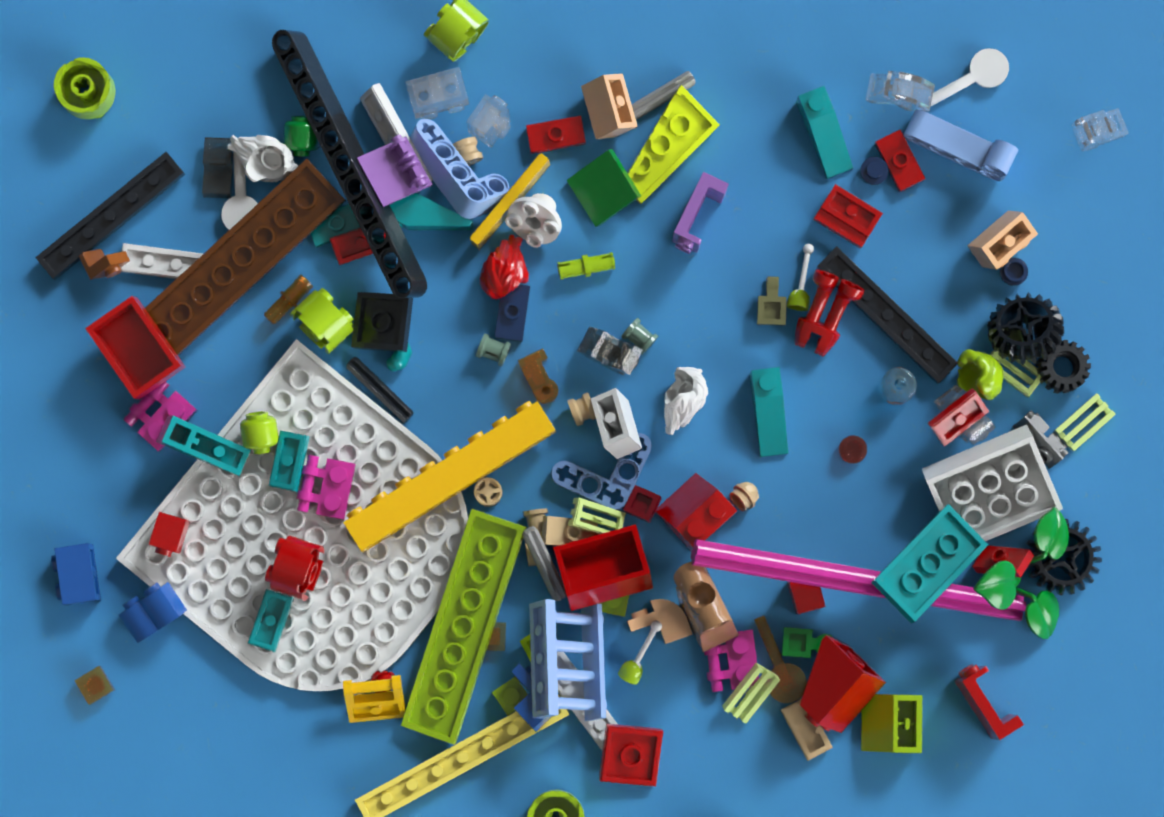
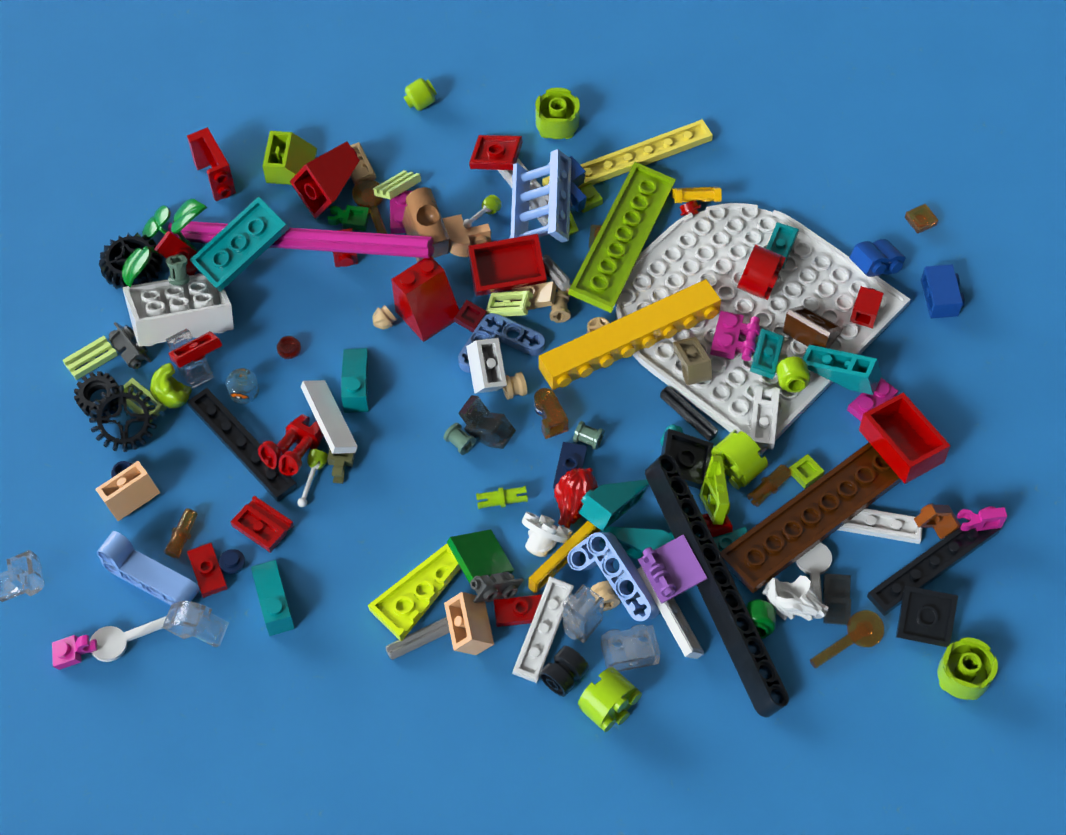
camera: 175 degrees left, 25 degrees down
(48, 259) = (986, 519): none -> dark pink plate
(123, 146) = (927, 616): none -> black plate
(192, 132) = (863, 629): none -> clear orange piece
(233, 503) = (810, 327): none -> reddish brown slope
(246, 319) = (806, 471): none -> lime plate
(293, 376) = (764, 416): none -> white plate
(349, 271) = (714, 491): none -> lime wing
(376, 446) = (694, 360): none -> dark tan plate
(466, 244) = (611, 501): none -> teal slope
(505, 62) = (566, 668): none -> black wheel
(530, 110) = (542, 630): none -> white tile
(591, 140) = (495, 587): none -> dark grey hinge
(684, 398) = (426, 387): white hair -> none
(707, 187) = (389, 543): medium lavender panel -> none
(792, 350) = (329, 417): none -> white tile
(935, 200) = (181, 533): none -> clear orange axle
(1005, 540) = (177, 268): none -> sand green bush
(1027, 54) = (69, 650): none -> dark pink plate

